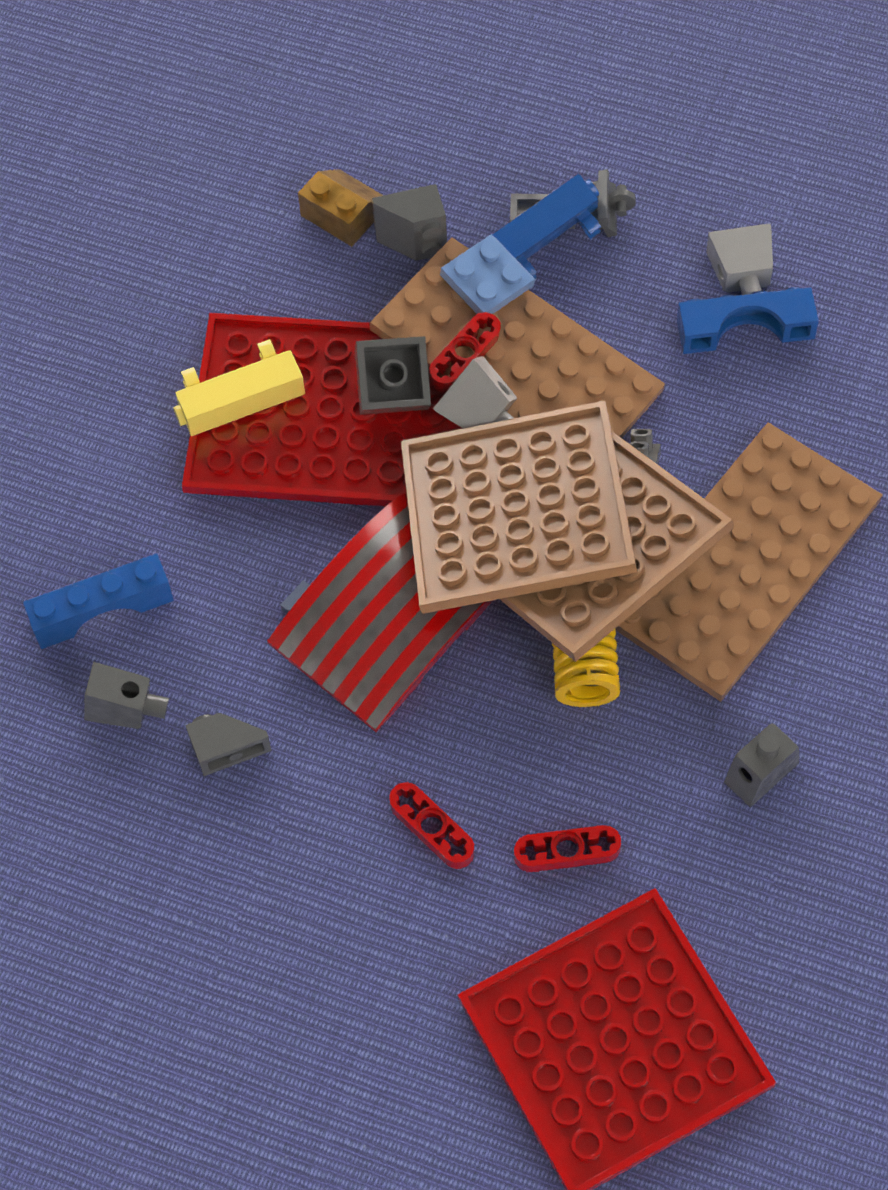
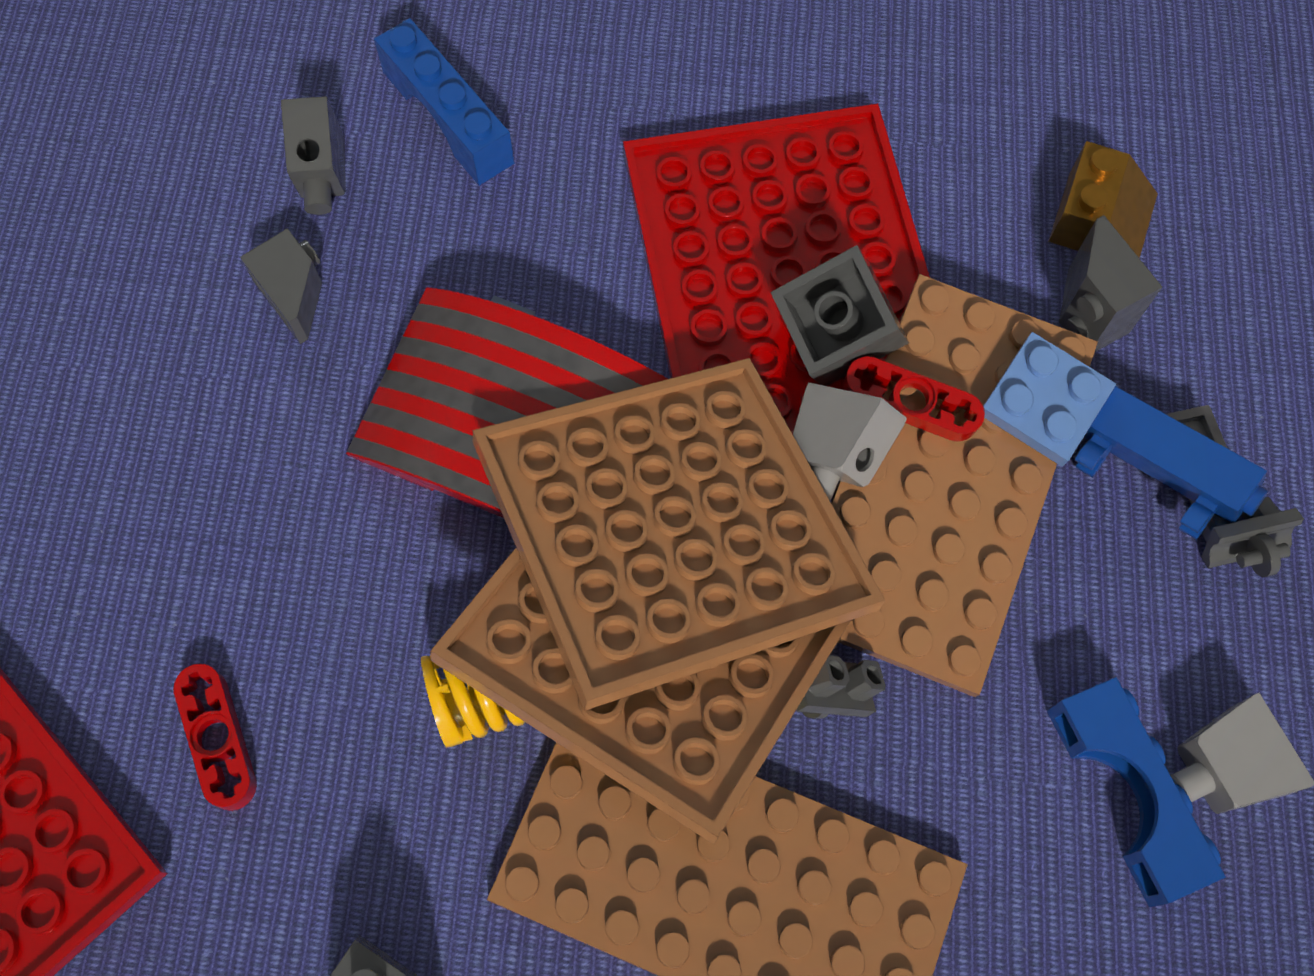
camera: 70 degrees right, 5 degrees up
(239, 391) = (766, 159): light yellow brick -> none
(406, 814) = (188, 575): red beam -> none

